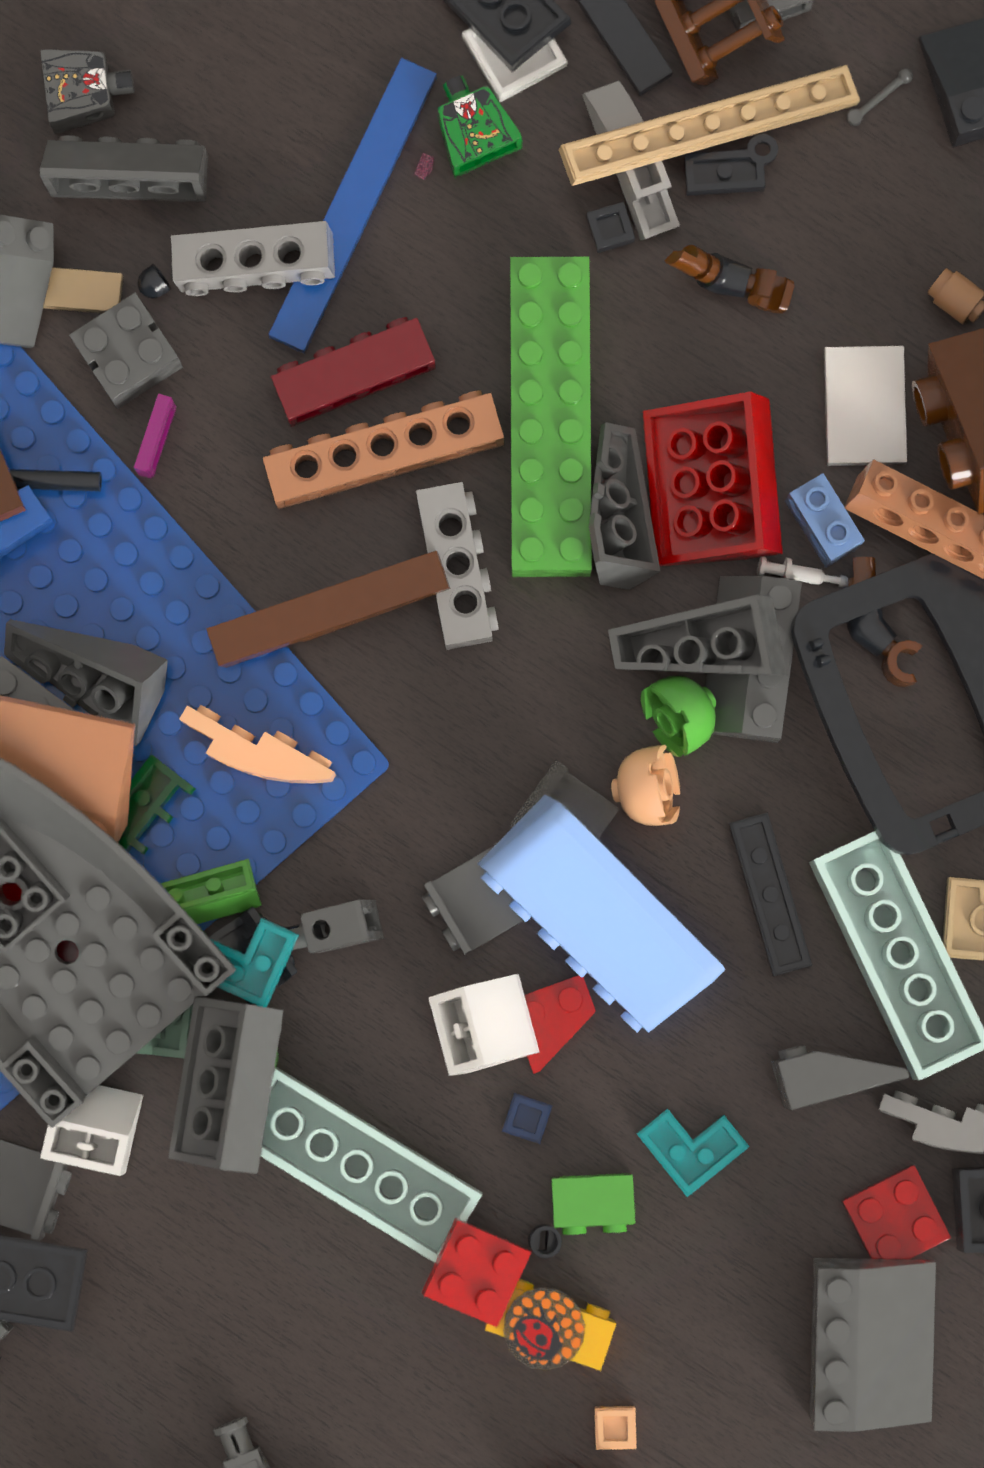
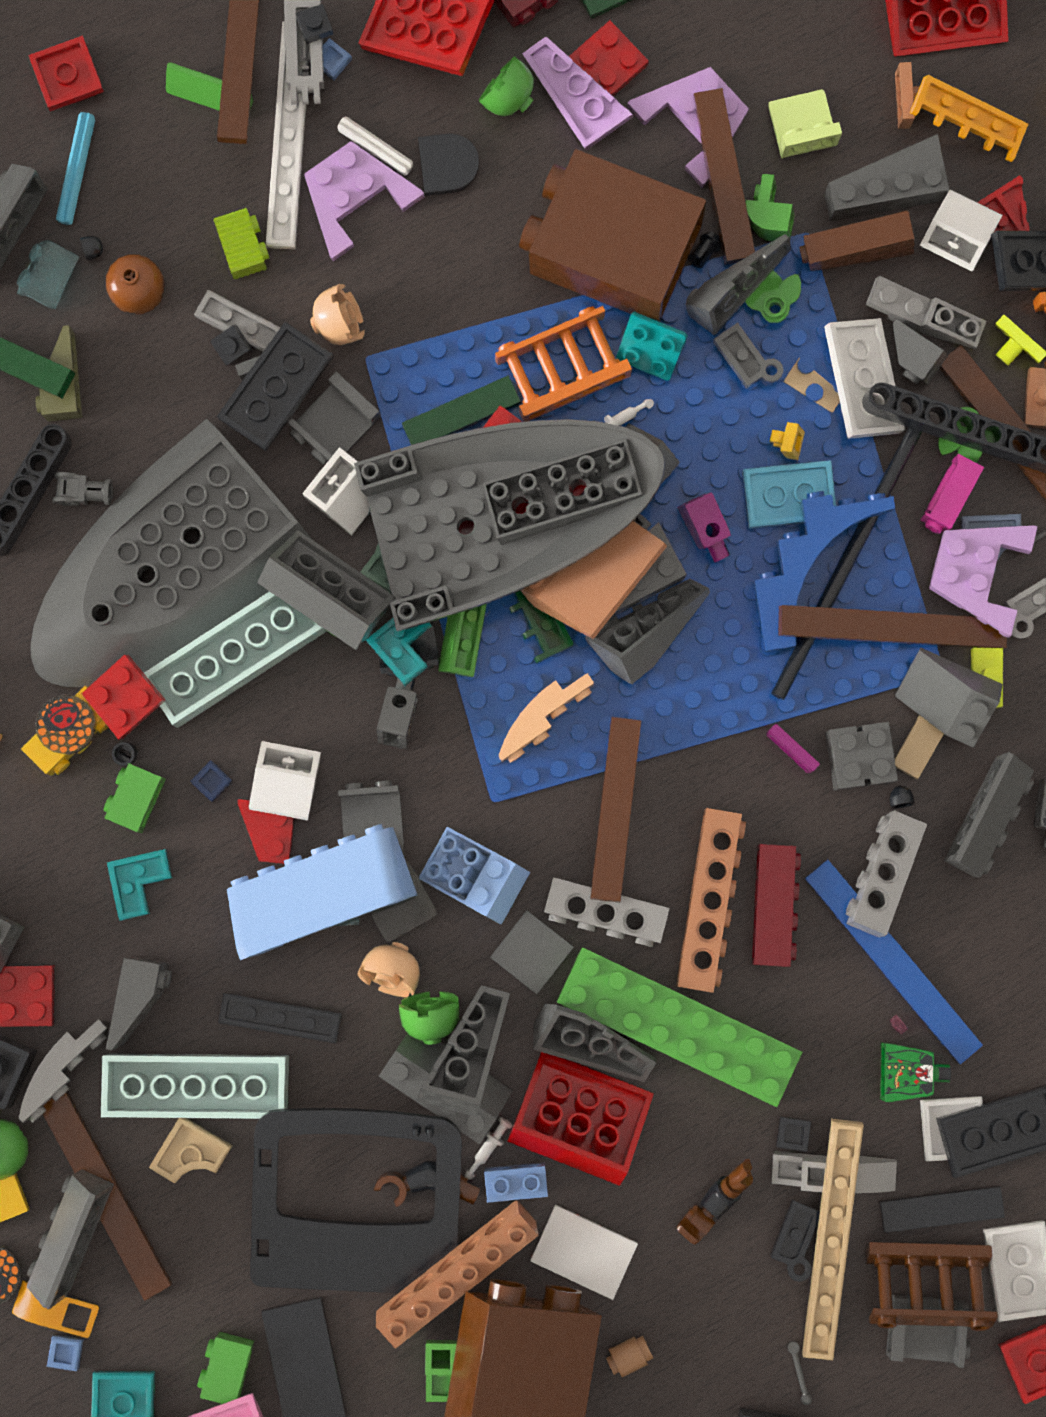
camera: 115 degrees right, 0 degrees up
(298, 1251) = (195, 586): none -> dark grey piece
(488, 743) = (474, 875): none -> light blue slope
(546, 631) = (531, 952): none -> dark grey tile

